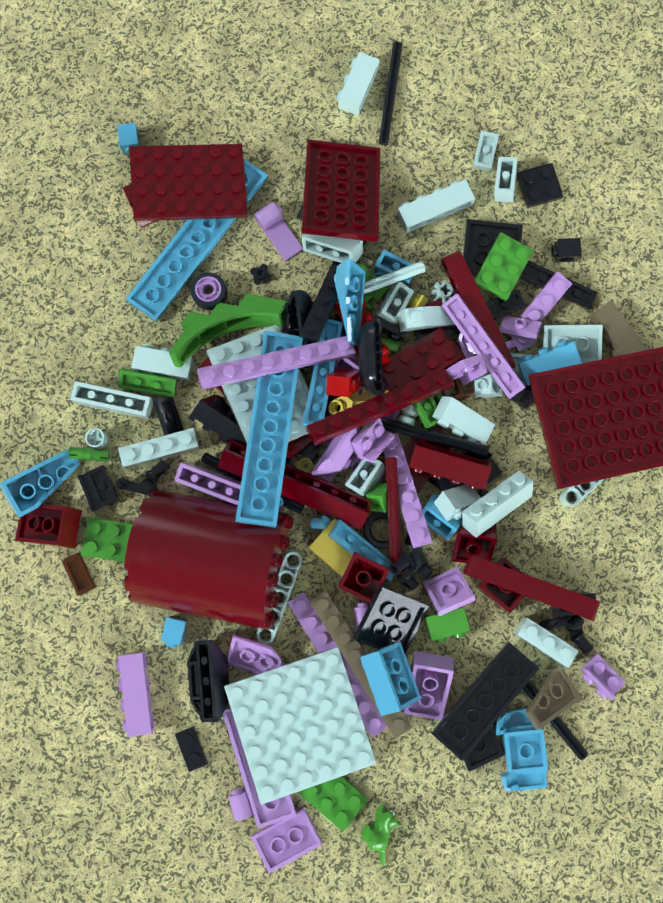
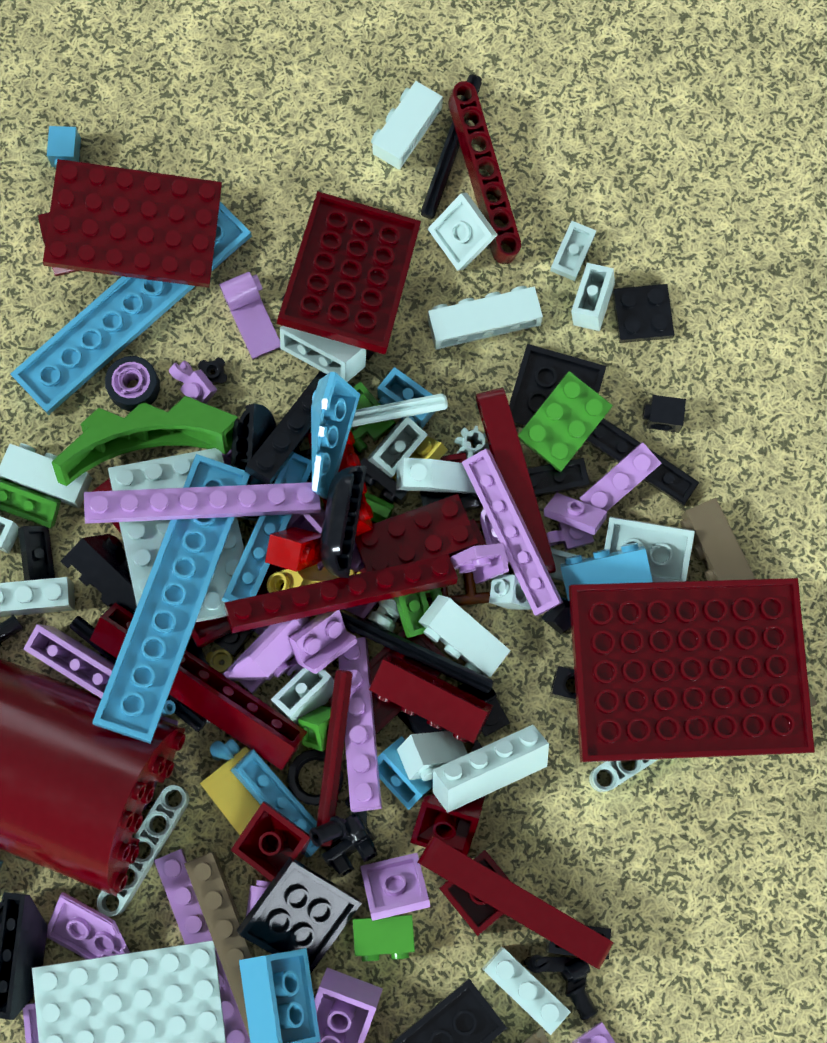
camera: 10 degrees right, 5 degrees down
(251, 283) = (195, 384): none -> lavender plate
(410, 150) = (462, 231): none -> light aqua plate
(418, 99) = (485, 160): none -> dark red beam
(530, 441) = (559, 688): none -> black brick

